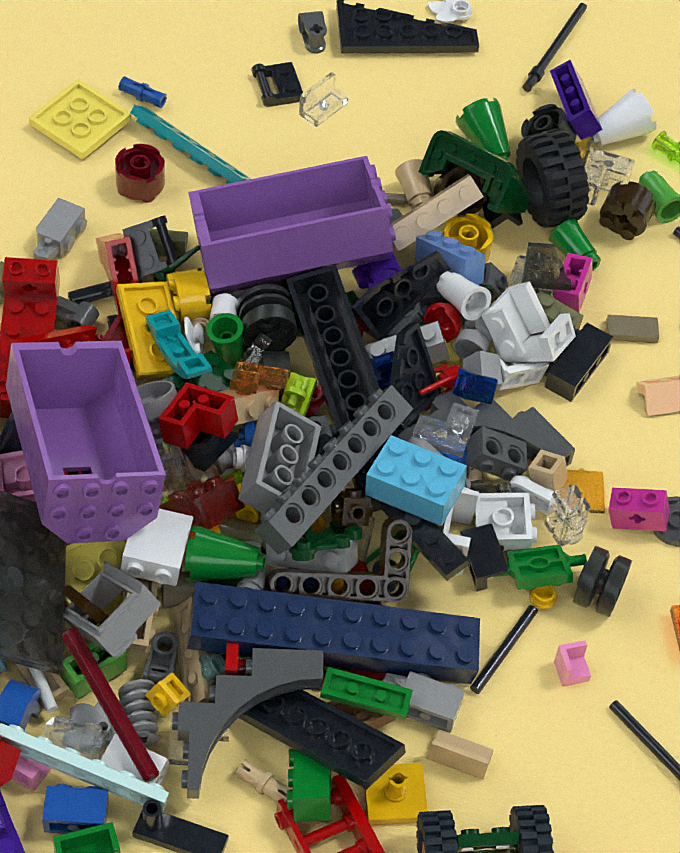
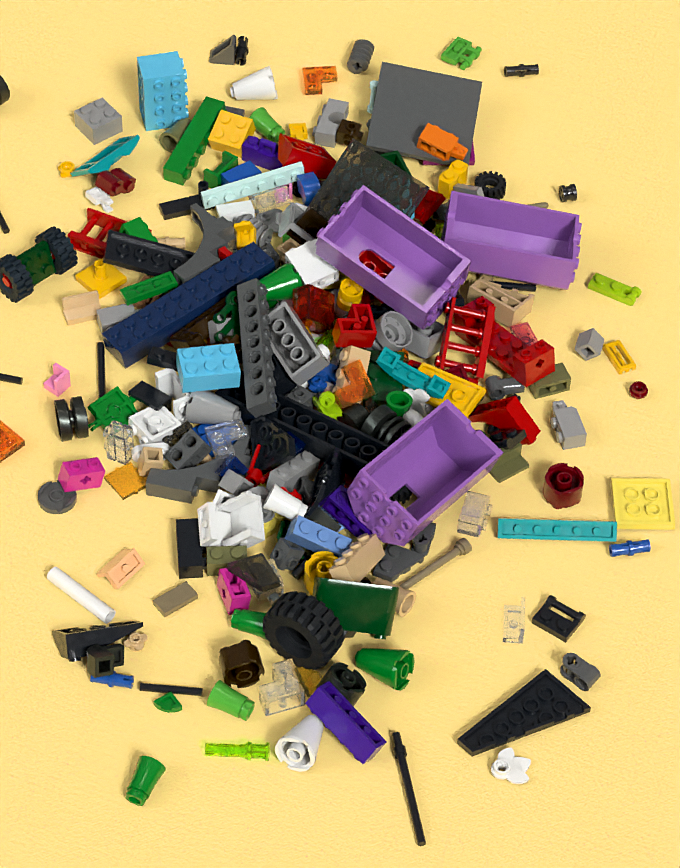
camera: 145 degrees right, 5 degrees down
(110, 705) = (248, 207): dark red axle -> none

